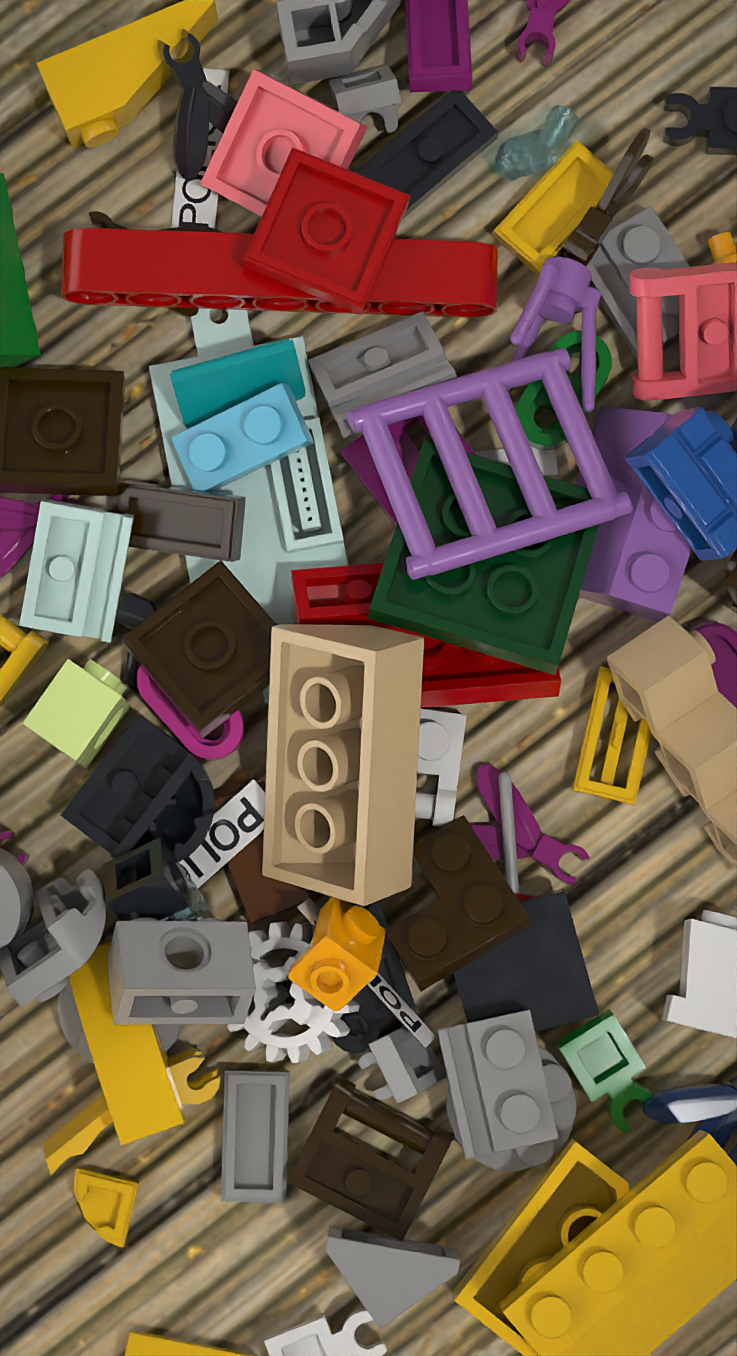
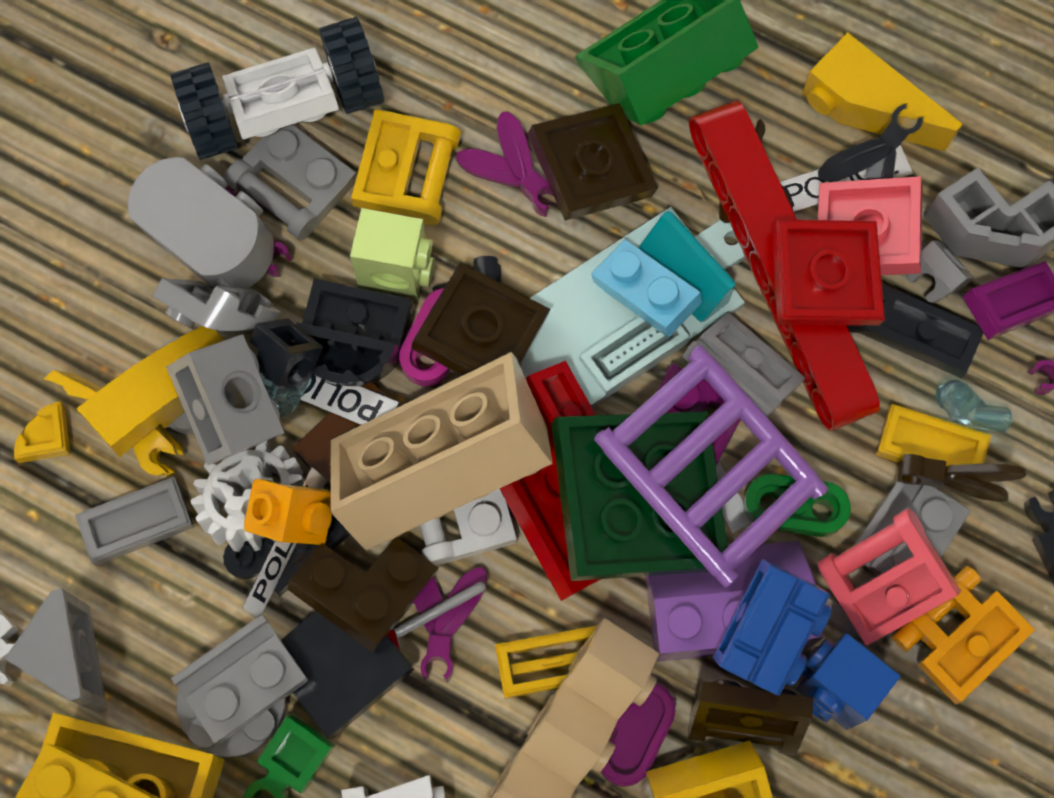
camera: 65 degrees right, 10 degrees down
(76, 570) = (498, 215): light aqua plate -> none
(183, 520) = (567, 271): dark brown tile -> none
(360, 1178) = (130, 610): dark brown plate -> none
(404, 1064) = (225, 603): light grey tile -> none
(558, 296) = (870, 470): medium lavender plant -> none

